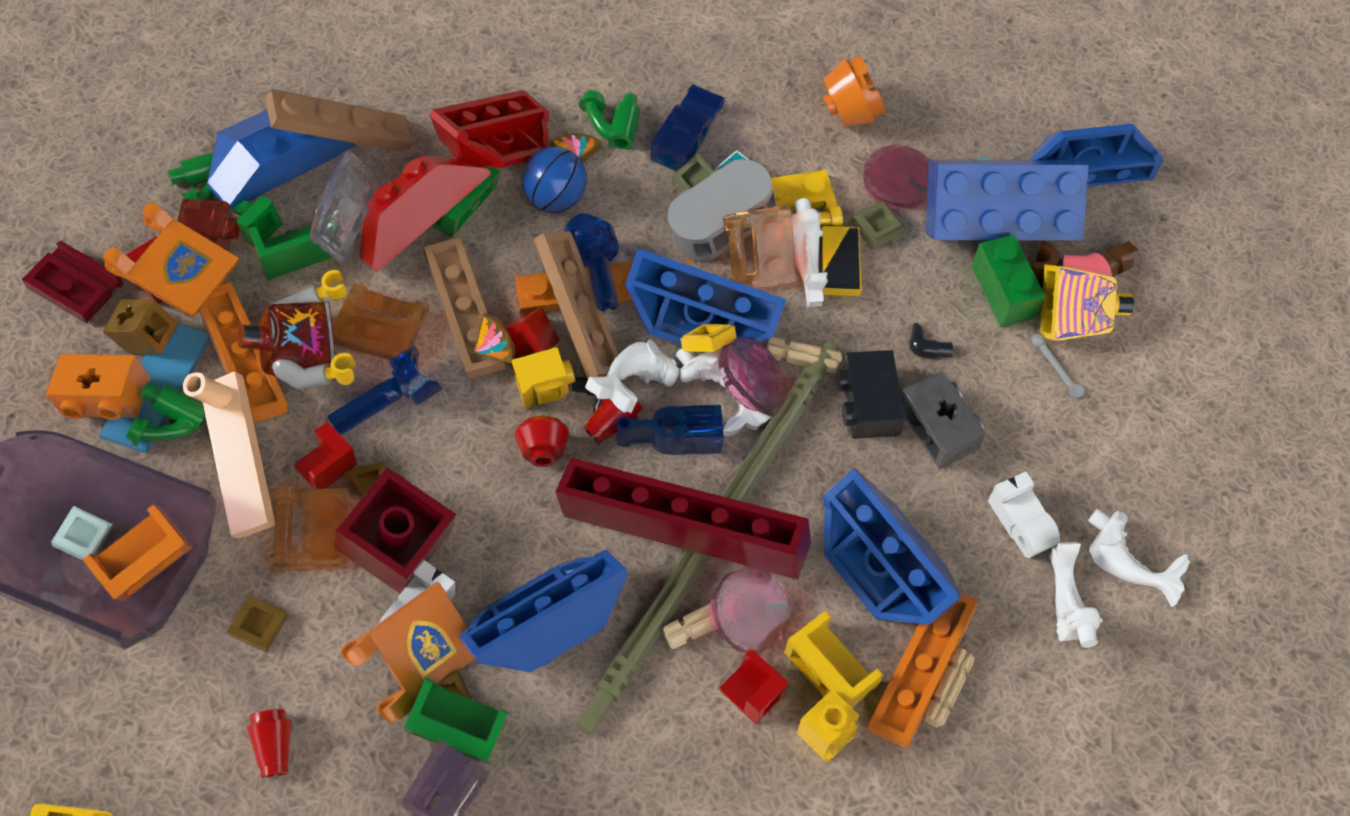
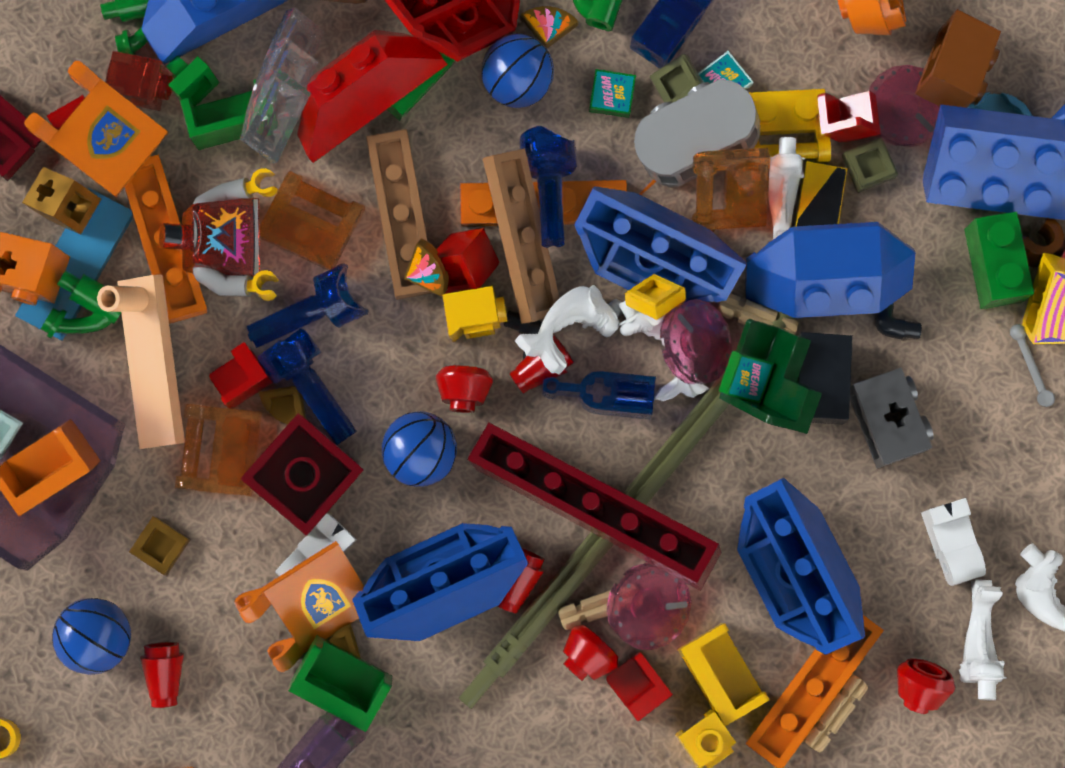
camera: 15 degrees right, 20 degrees up
(194, 711) = (91, 636): none -> blue piece
(377, 438) = (292, 361): none -> clear blue piece
(507, 495) = (419, 449): none -> blue piece
(624, 608) = (524, 583): none -> red cone
(641, 194) = (612, 93): none -> tile
(699, 662) = (588, 654): none -> red cone
(804, 394) = (746, 376): none -> tile
(823, 394) = (785, 400): none -> dark green panel
(853, 188) = (848, 117): none -> red panel
(860, 299) = (831, 270): none -> blue wedge
(937, 132) = (959, 62): none -> dark orange brick
(1026, 647) = (924, 685): none -> red cone

